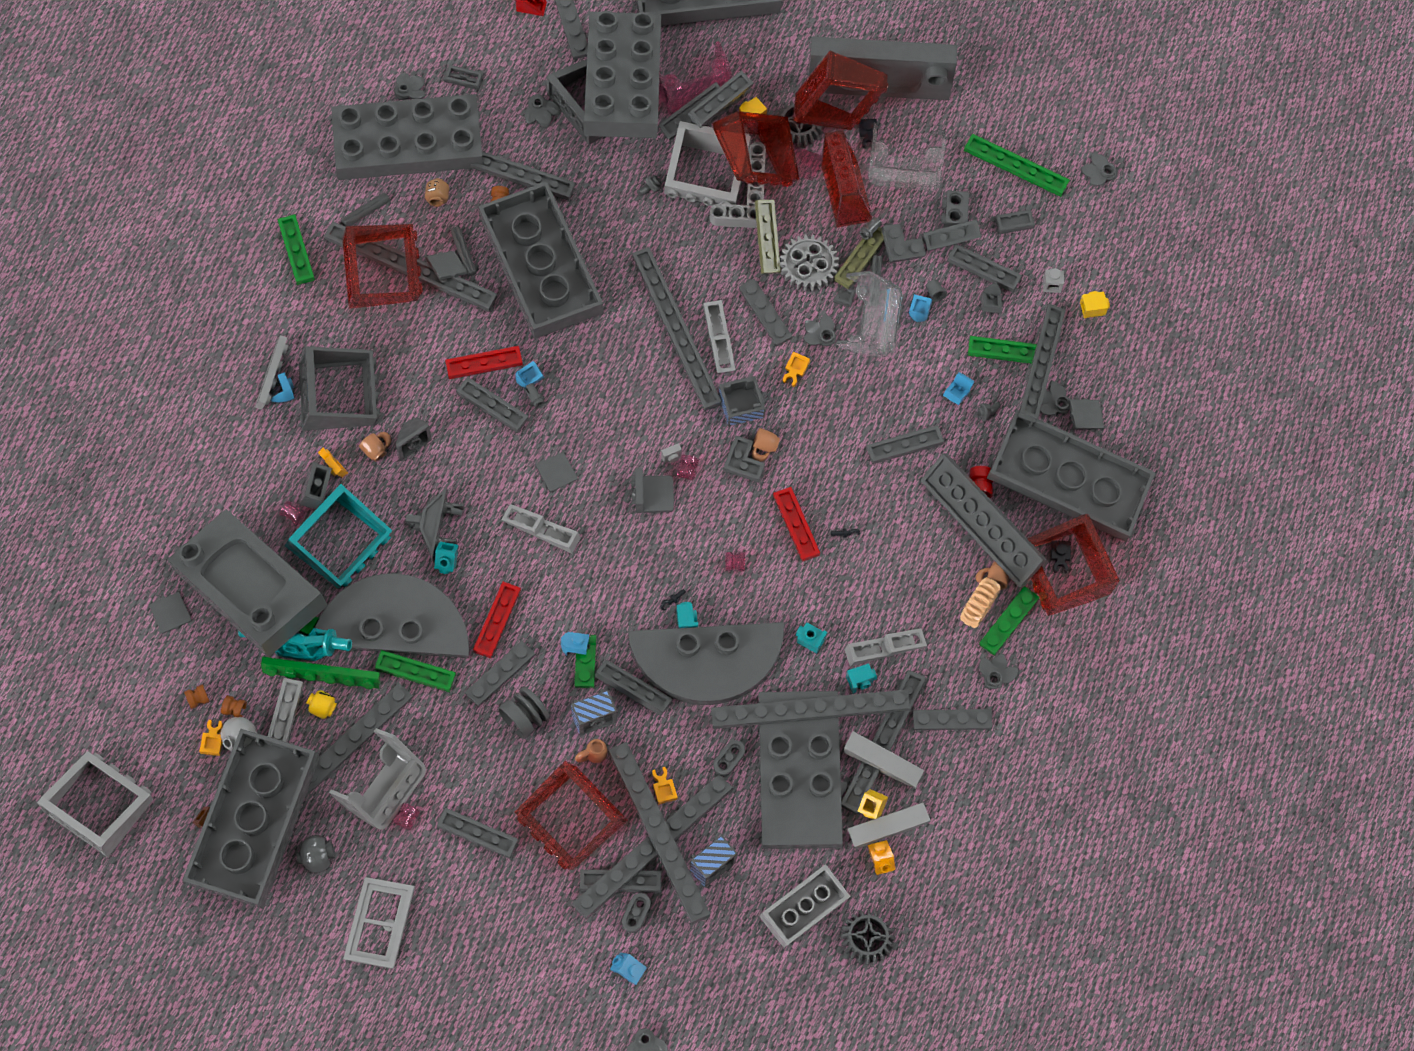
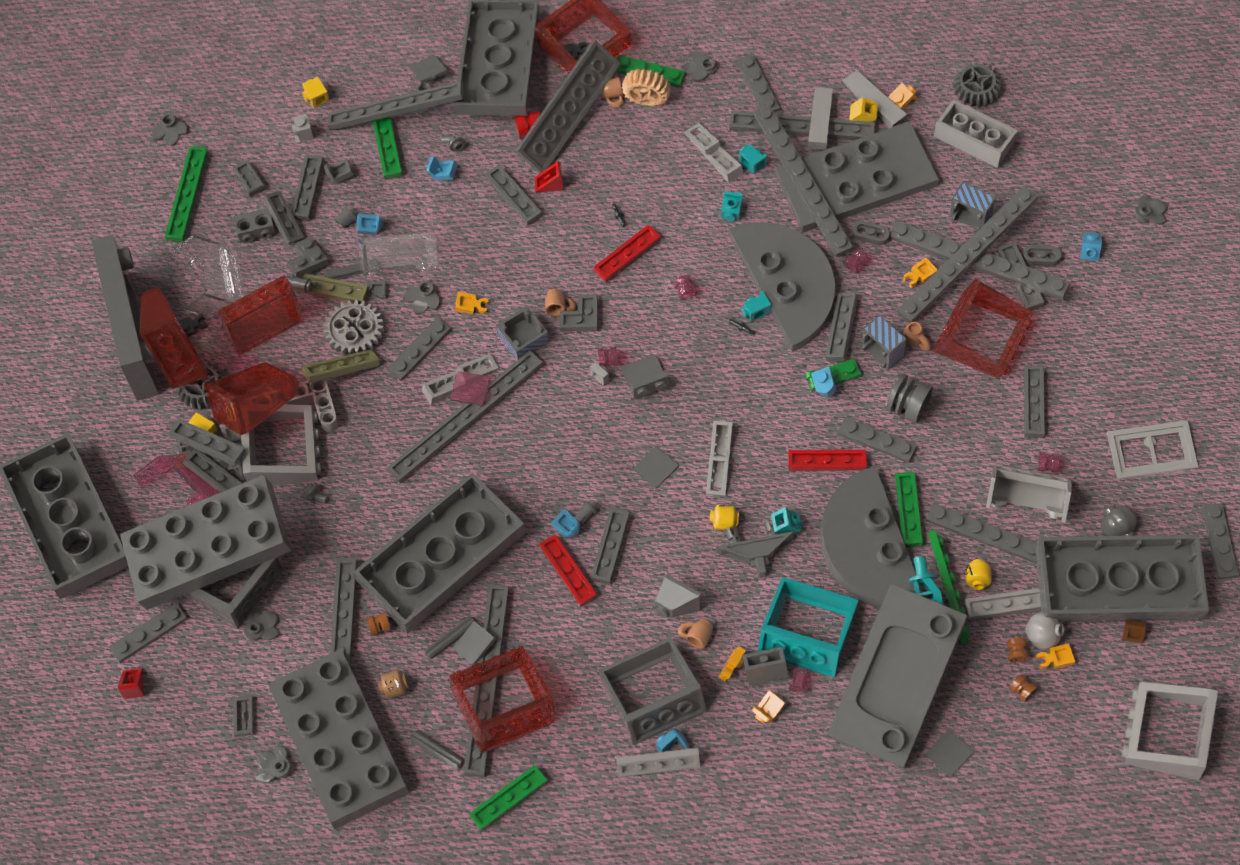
camera: 100 degrees left, 5 degrees down
(258, 941) = (1220, 541): none -> dark grey plate
(277, 476) = (769, 707): none -> bracket
(476, 508) = (724, 517): none -> yellow head
(700, 337) = (470, 388): none -> clear pink piece
(701, 729) = (856, 260): none -> clear pink wheel
(908, 483) = (549, 179): none -> red slope

